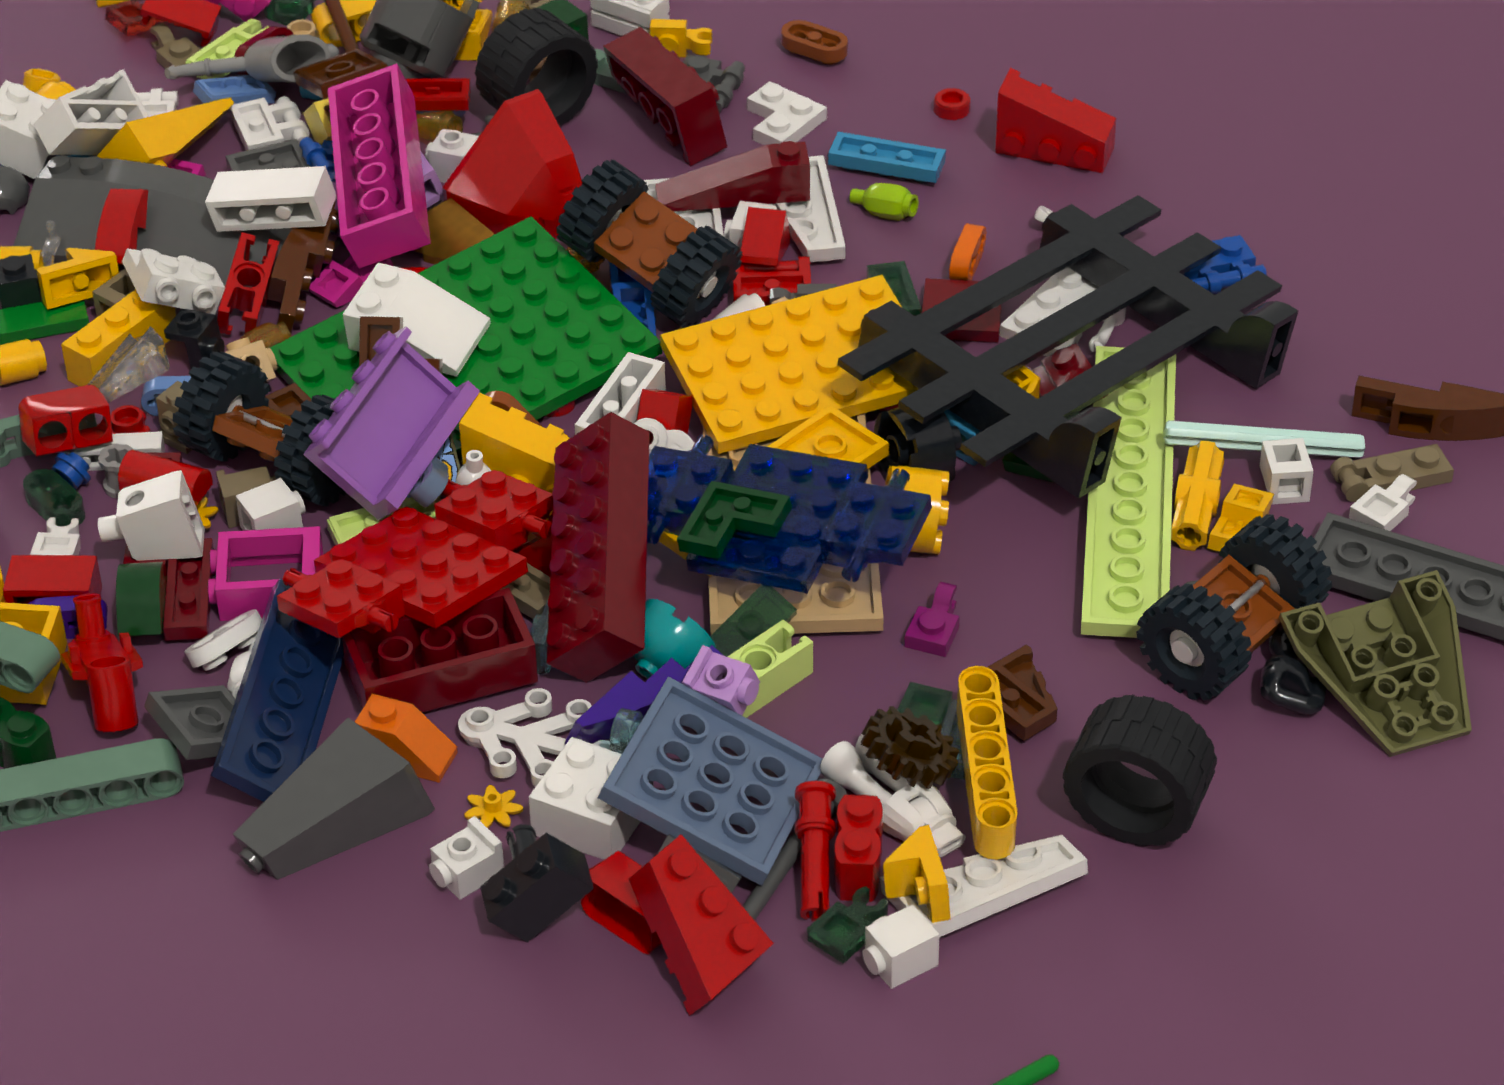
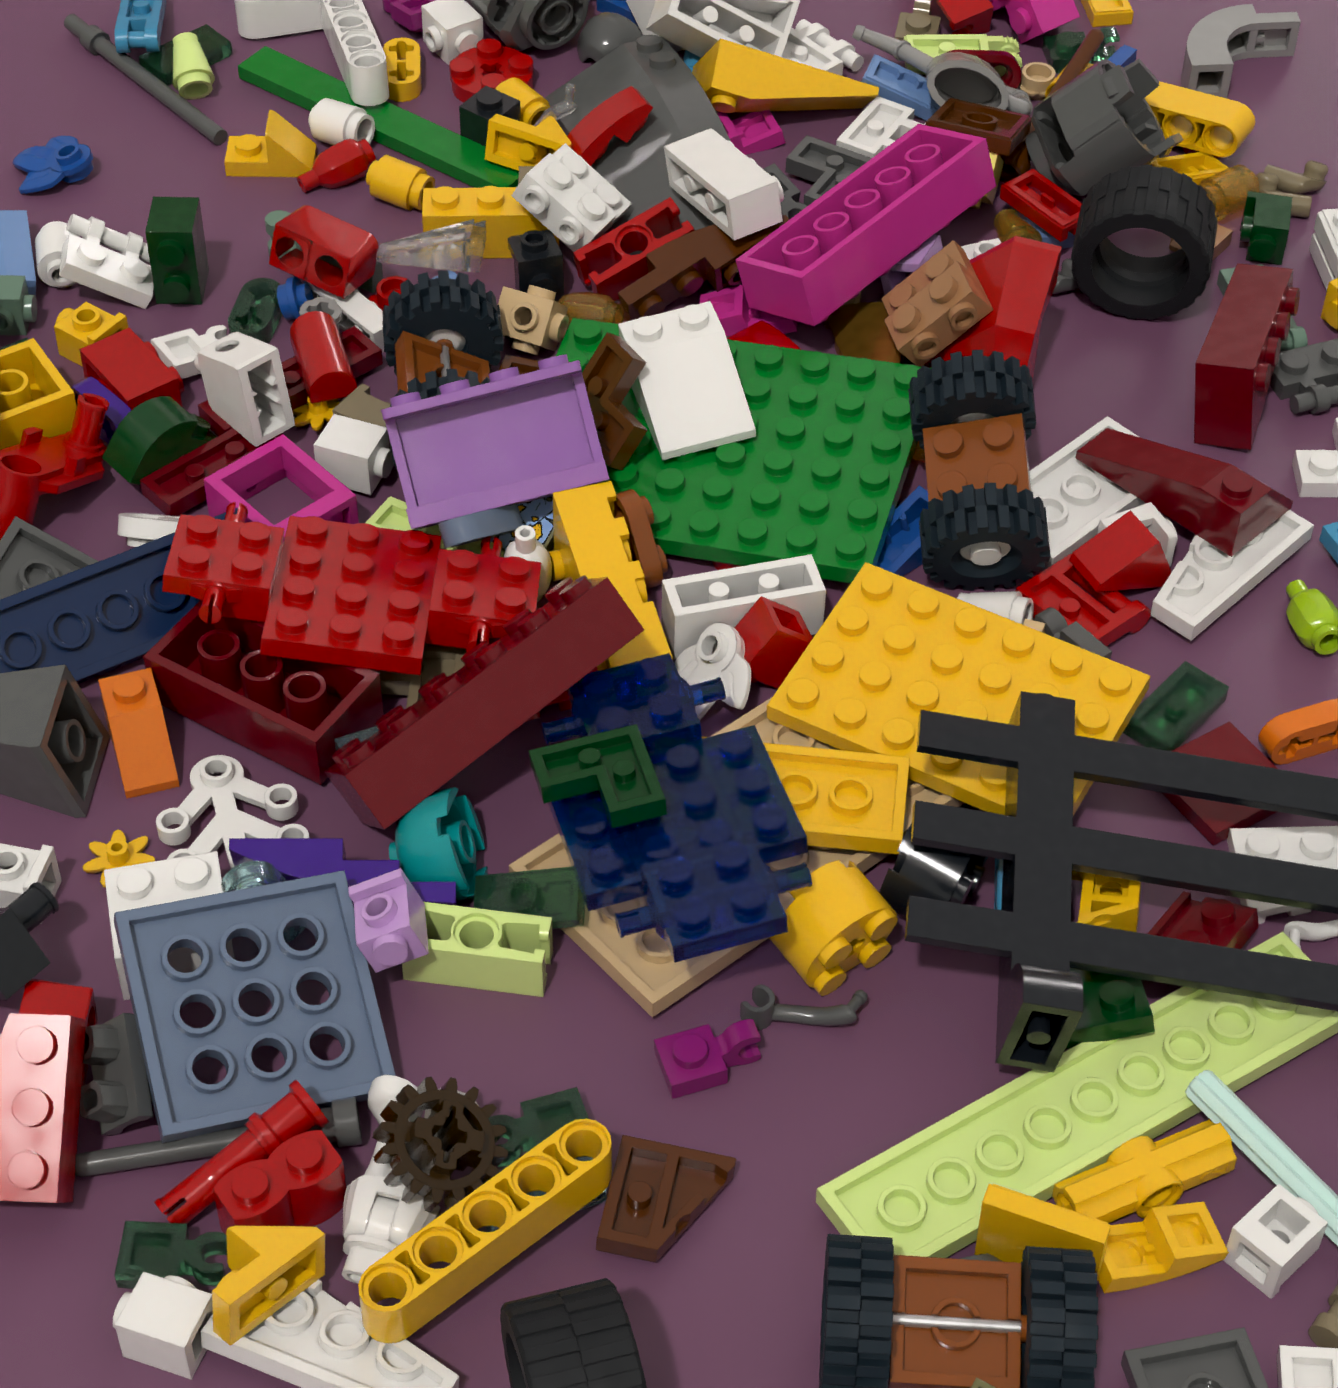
camera: 50 degrees right, 5 degrees up
(486, 179) = (935, 305): none -> medium nougat plate
(927, 577) = (811, 1015): none -> dark grey piece
(1200, 542) = (1018, 1220): none -> yellow tile

